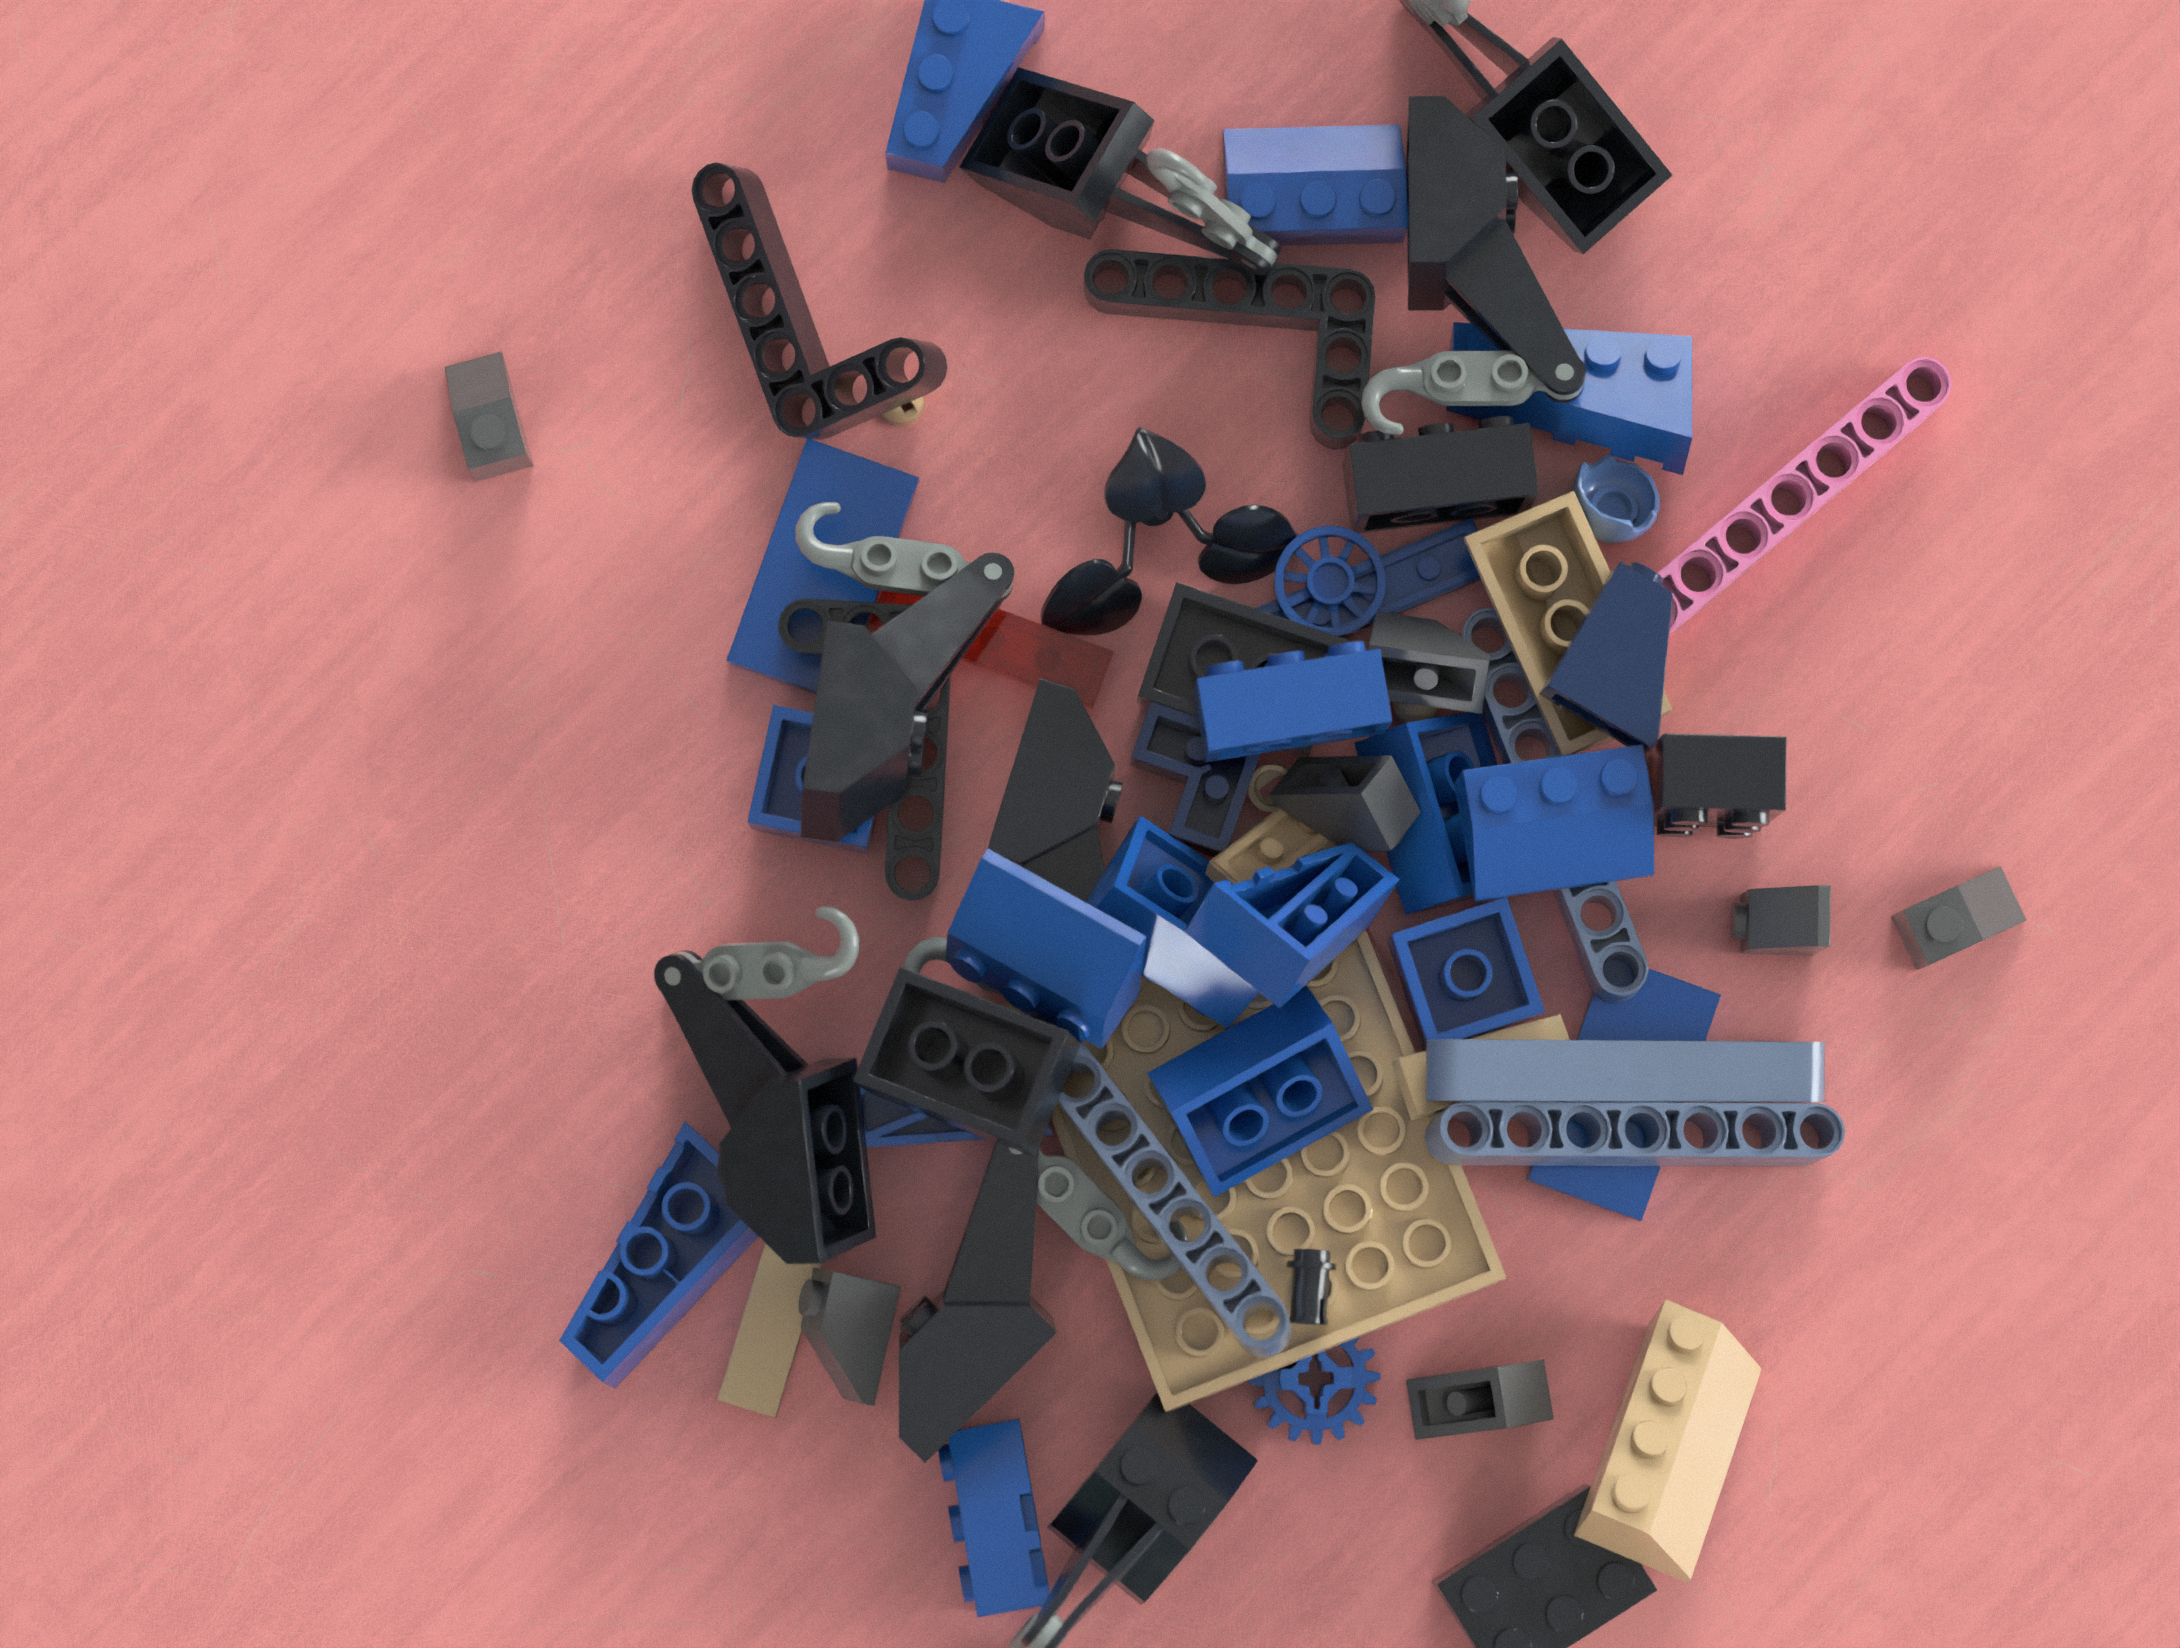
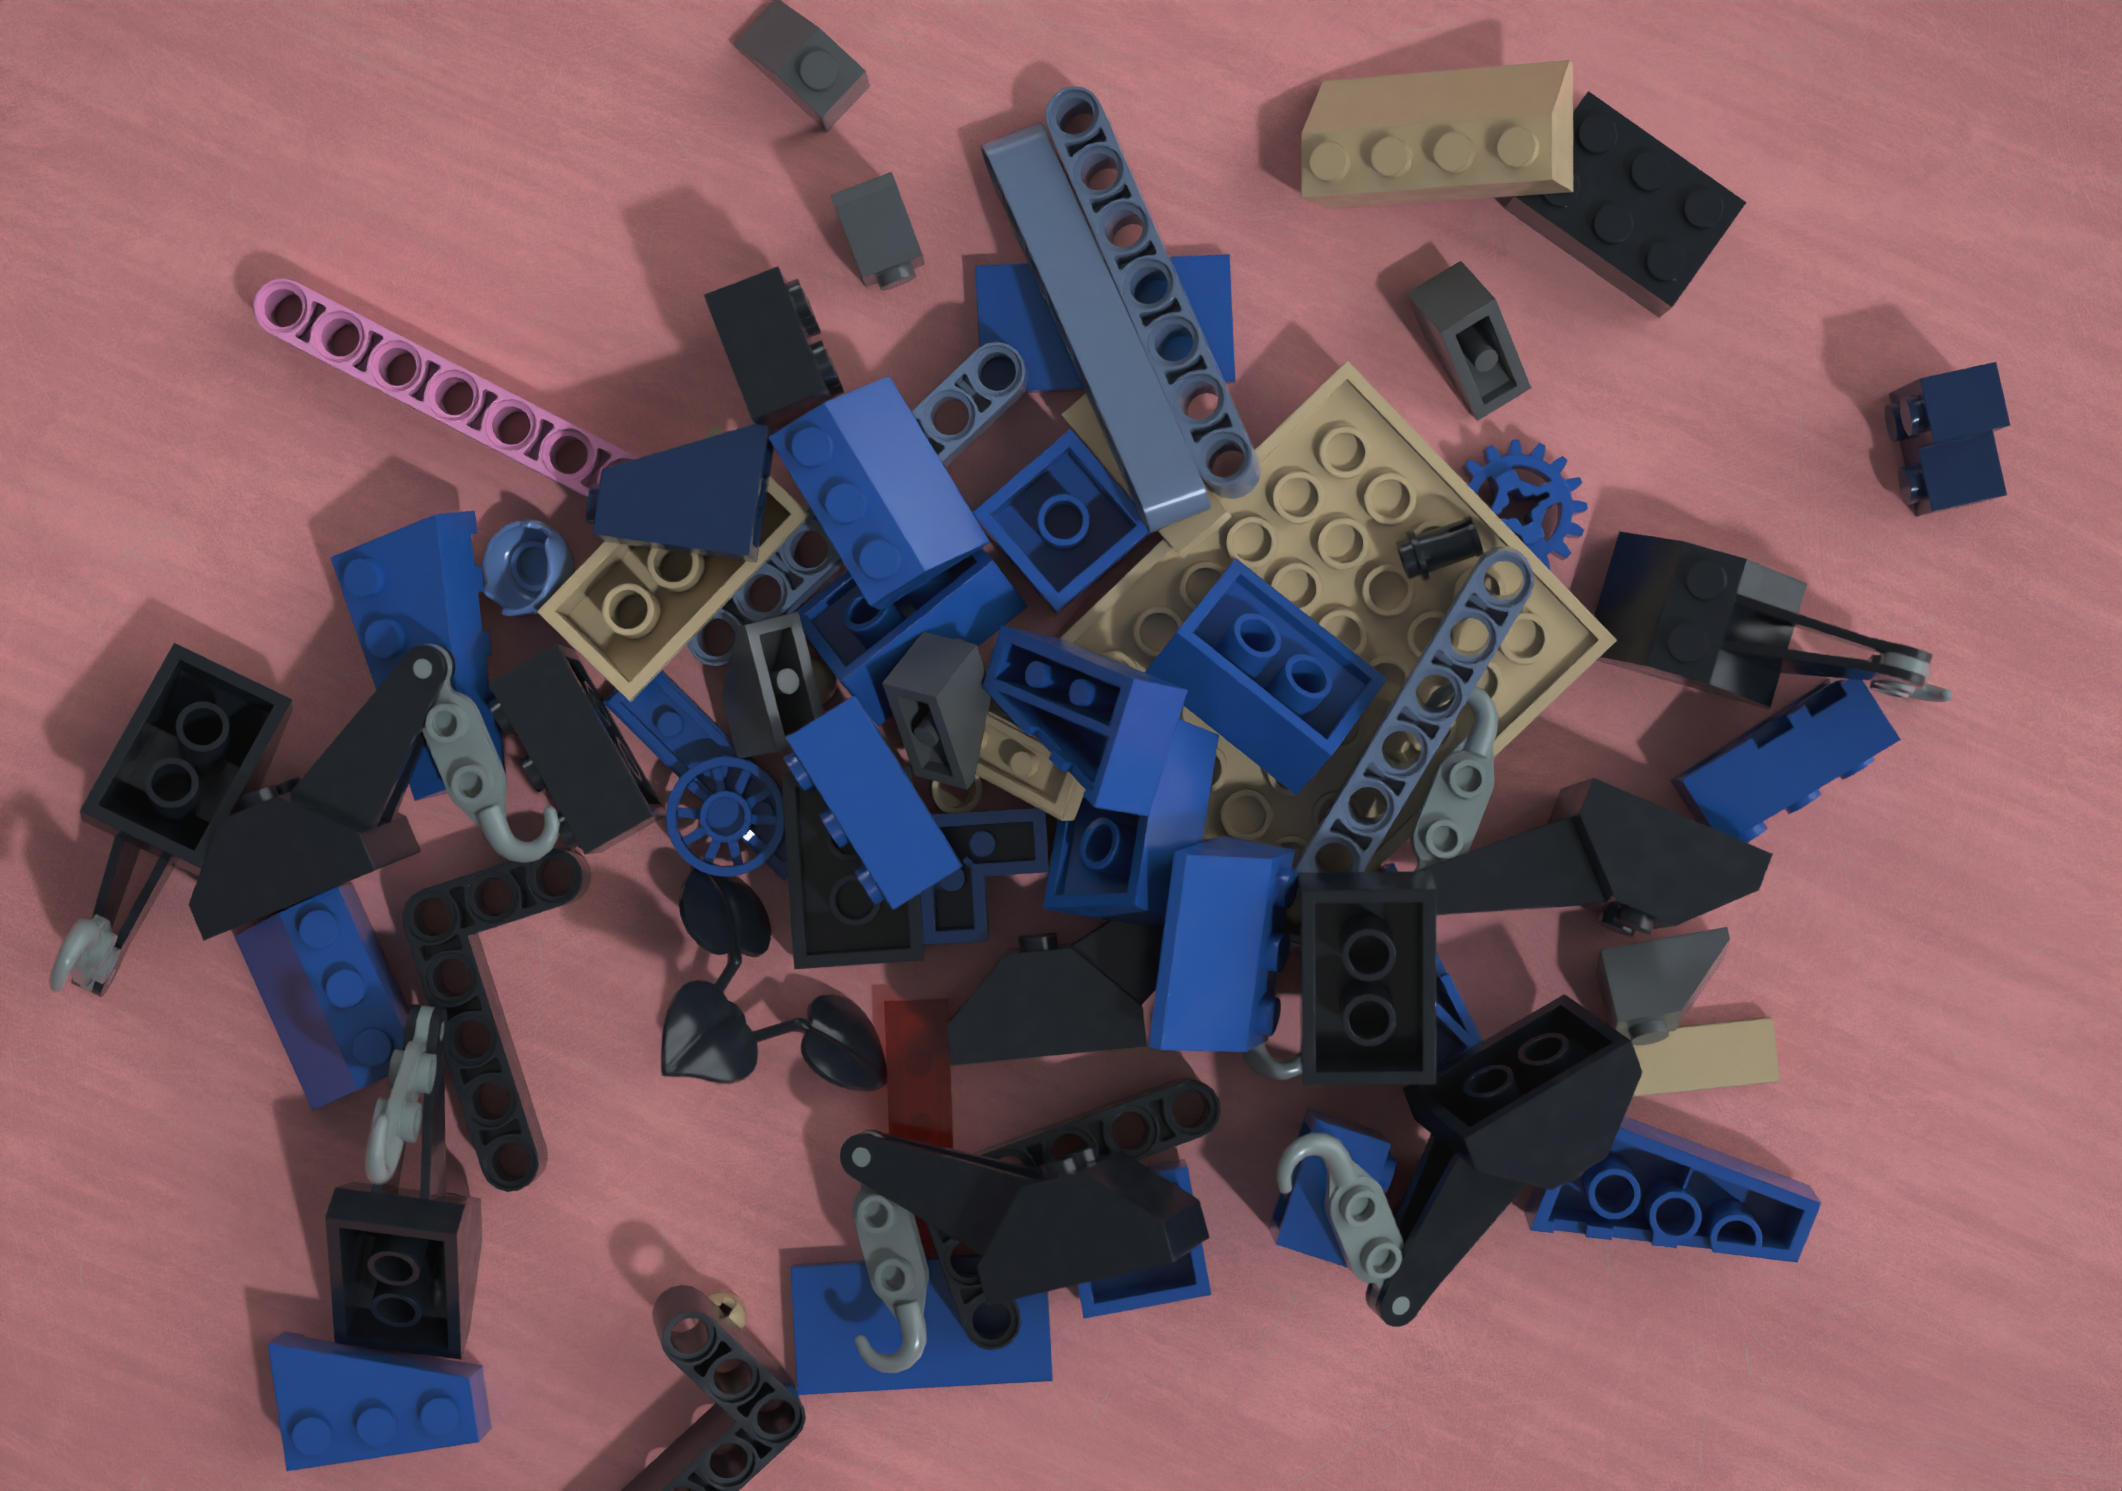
camera: 110 degrees left, 5 degrees up
(821, 1001) = (1300, 1215): none -> blue brick

